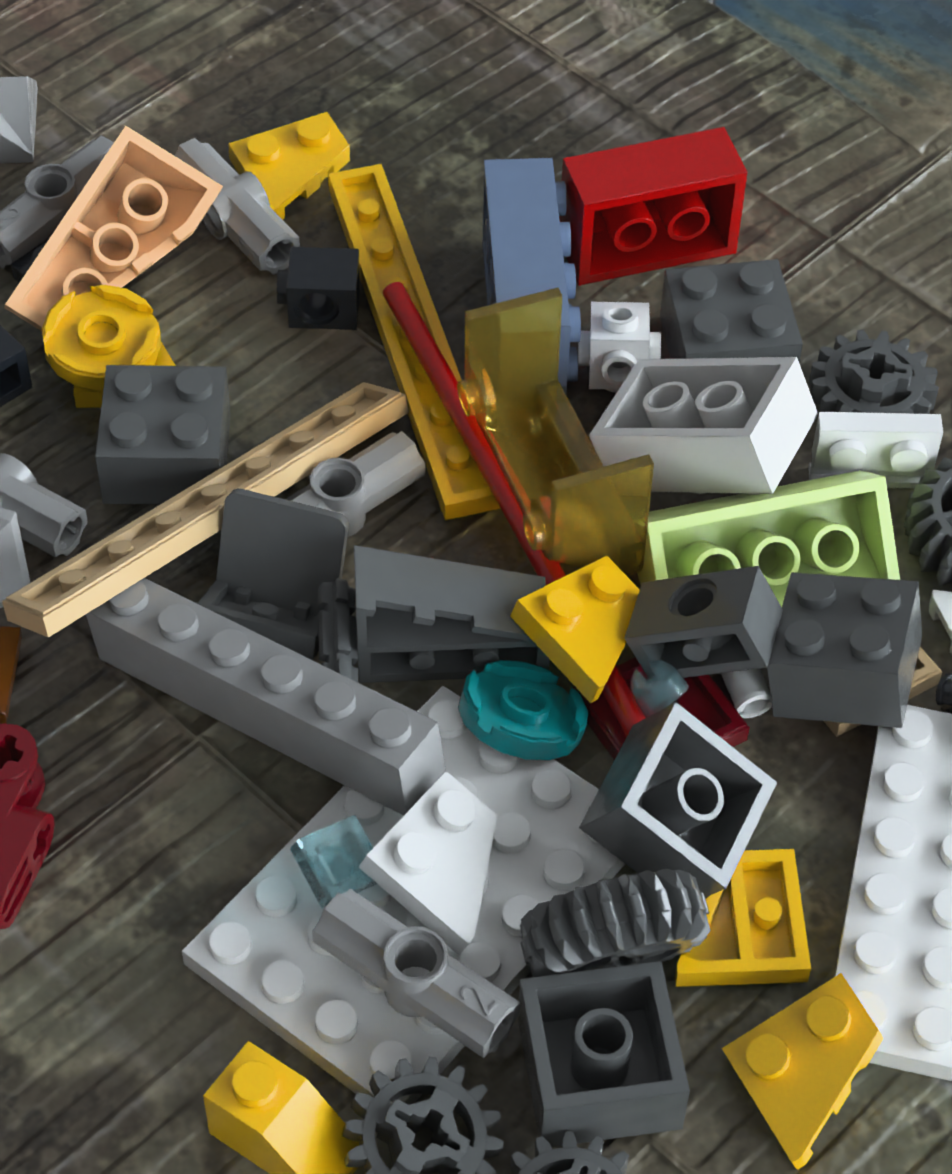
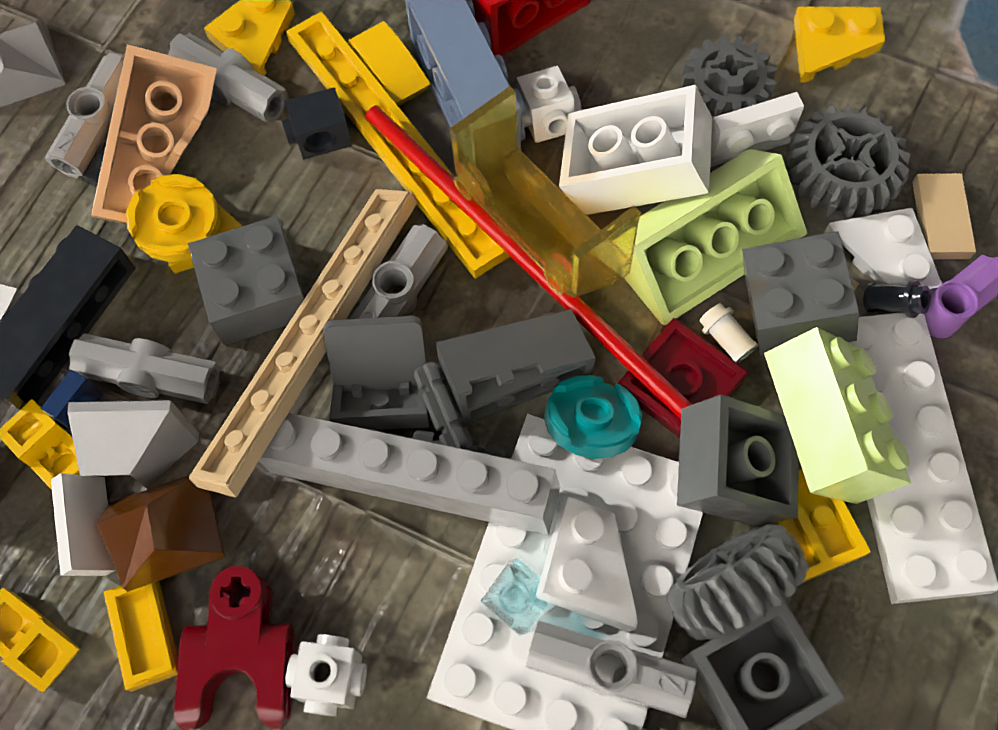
camera: 15 degrees left, 15 degrees up
(72, 882) = (342, 686): none -> white brick
(443, 248) = (390, 63): none -> yellow slope
(581, 622) = (616, 339): yellow wing -> none
(659, 689) = (684, 370): clear light blue hinge -> none
(705, 622) = (726, 318): dark grey brick -> none
(729, 312) = (615, 59): dark grey brick -> none
(804, 1062) = (896, 627): yellow wing -> none
(825, 793) = (837, 417): none -> yellowish green brick

